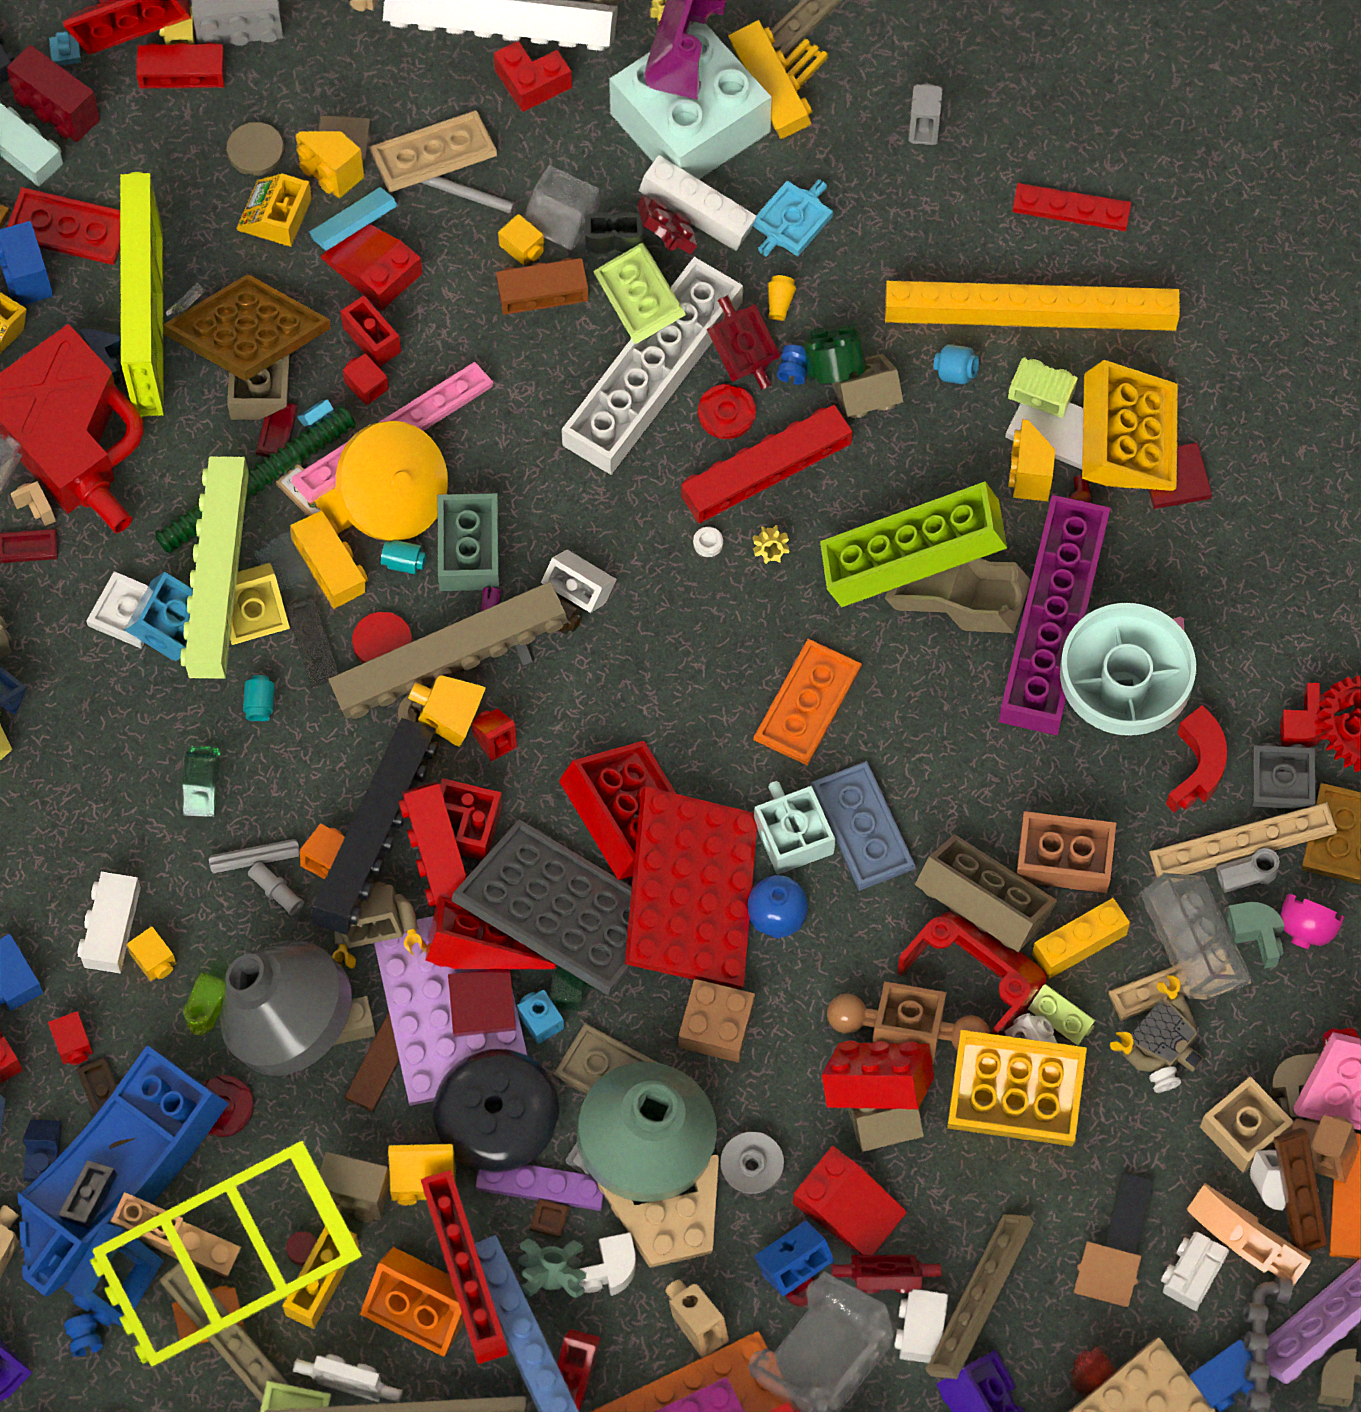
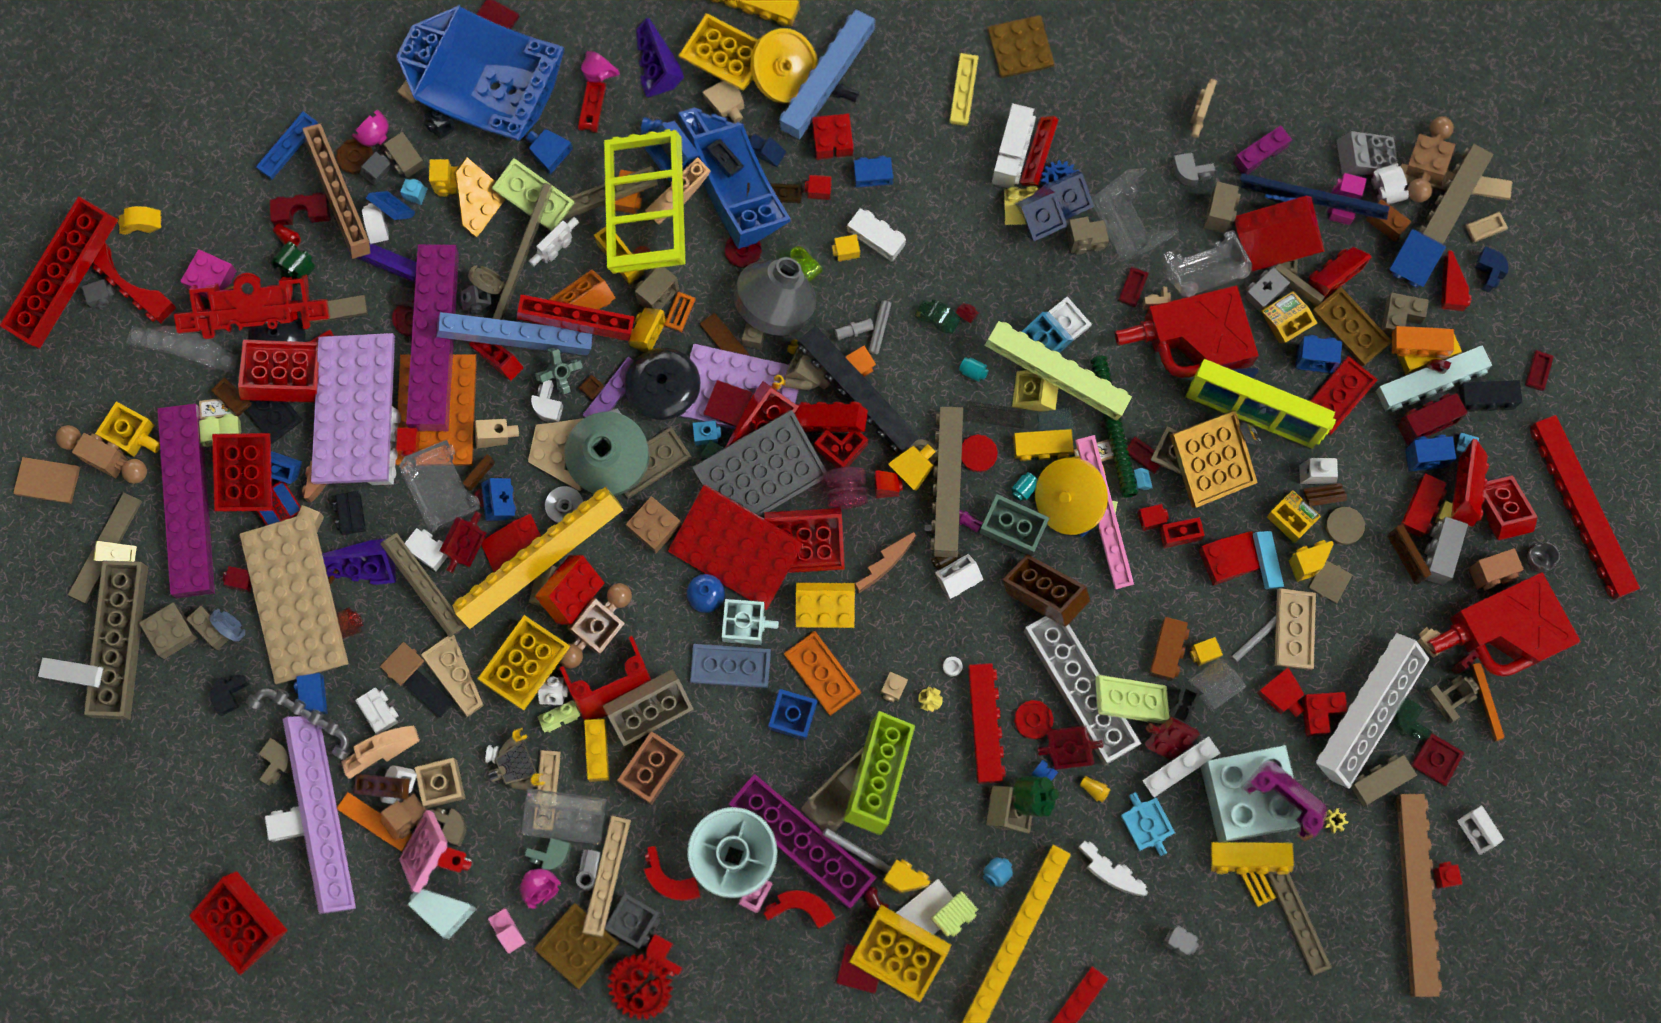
camera: 115 degrees right, 10 degrees up
(106, 76) = (1430, 453): none -> blue brick
(175, 743) = (967, 312): none -> dark red plate
(191, 195) = (1320, 471): none -> white torso
(214, 191) = (1325, 494): none -> reddish brown tile
(262, 51) = (1409, 554): none -> reddish brown tile
(367, 1137) = (674, 326): none -> orange tile
(522, 781) = (846, 487): none -> clear pink wheel
(529, 130) = (1283, 693): none -> red torso
(546, 452) = (1046, 590): none -> reddish brown brick
(597, 682) = (890, 557): none -> nougat slope
(713, 730) = (825, 605): none -> yellow brick
(767, 1311) = (478, 473): none -> reddish brown tile
(778, 601) = (893, 687): none -> tan bracket
(856, 1144) = (537, 557): none -> yellow brick
(880, 233) = (1119, 877): none -> white slope
(889, 704) = (793, 714): none -> blue brick
(1028, 539) = (856, 850): none -> light grey bar
(1077, 1202) = (451, 670): none -> tan wing
(1129, 576) = (805, 901): none -> red arch

